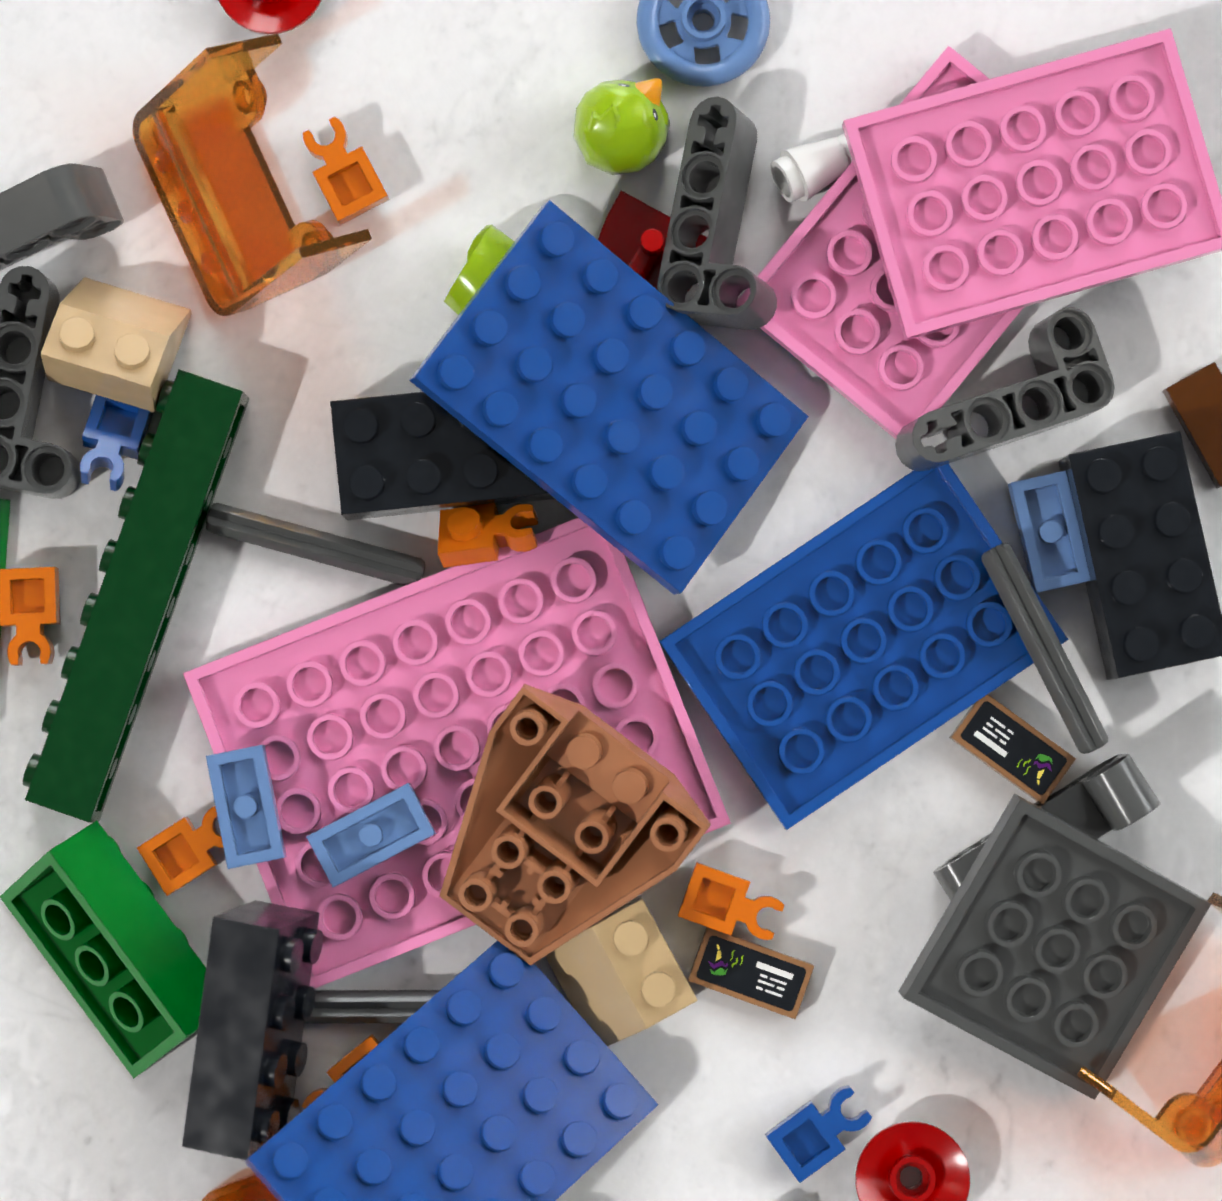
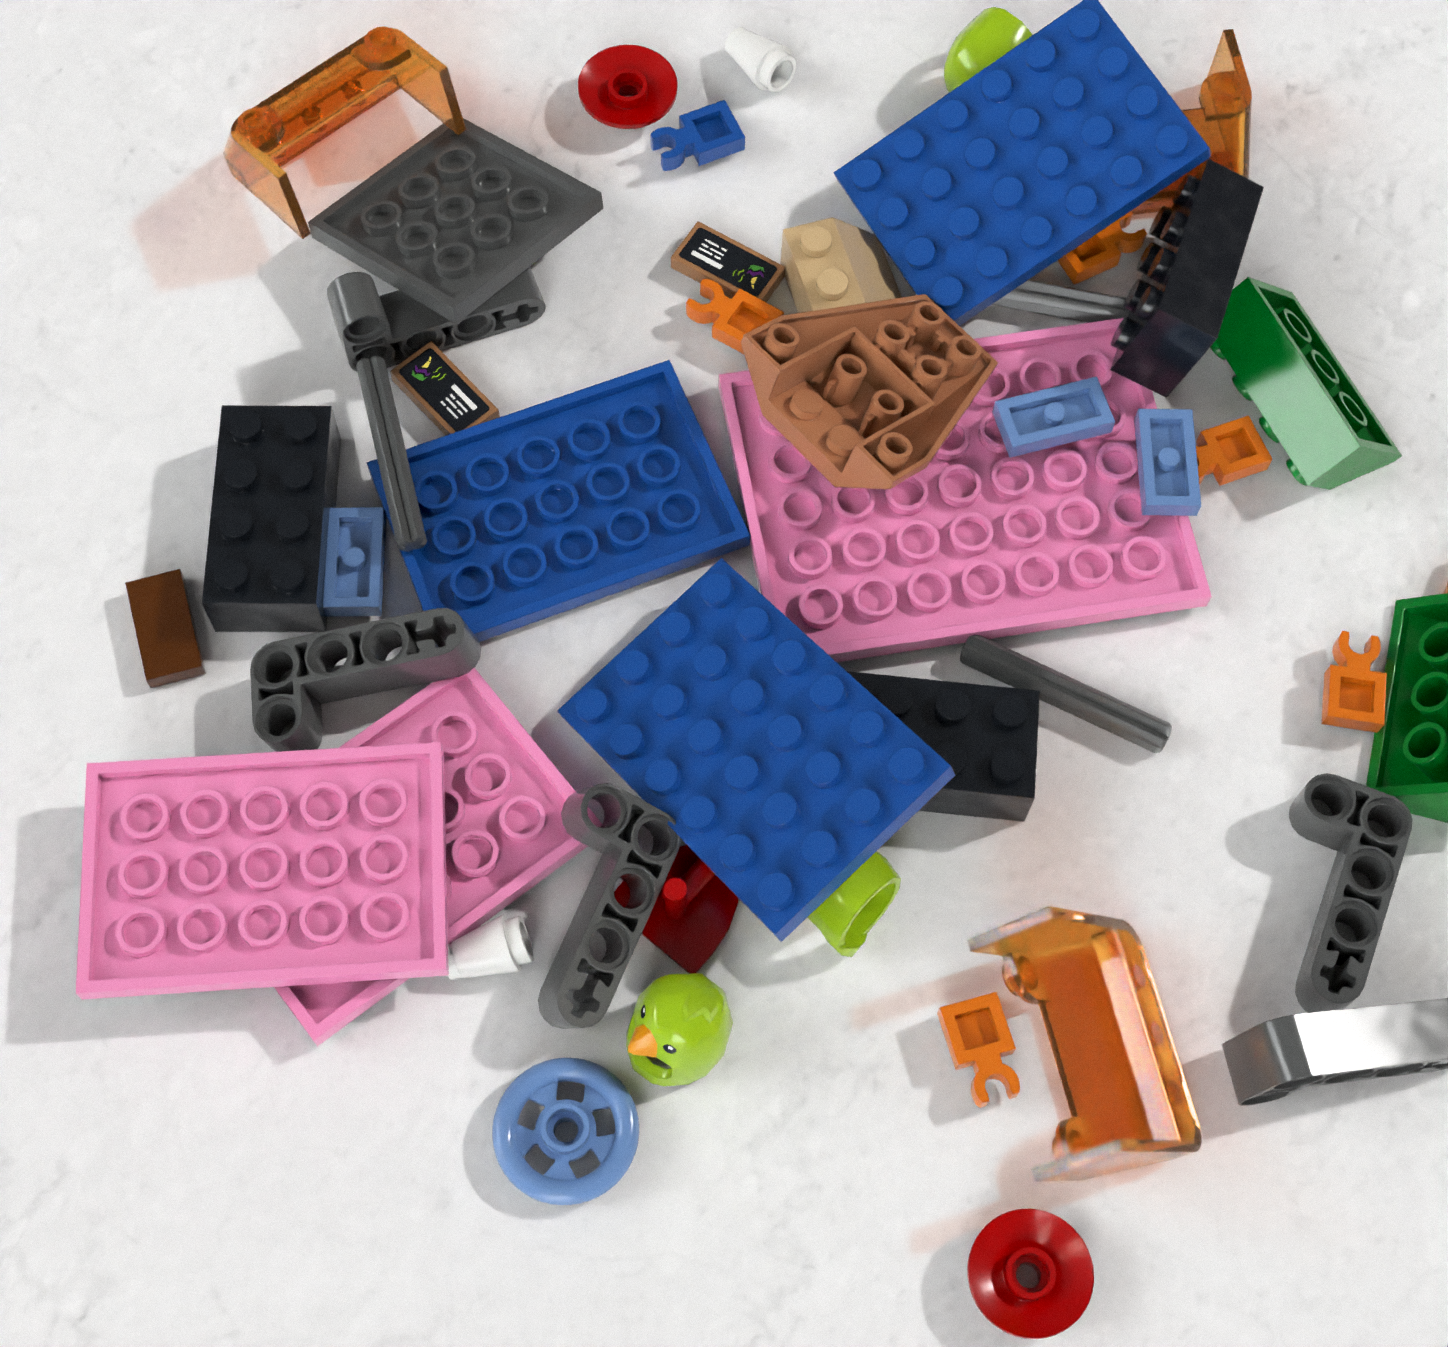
camera: 170 degrees left, 20 degrees down
(112, 432) = (1252, 833): blue plate -> none
(114, 343) = (1244, 917): tan slope -> none
(136, 596) = (1244, 680): dark green brick -> none
(478, 532) = (903, 657): orange plate -> none

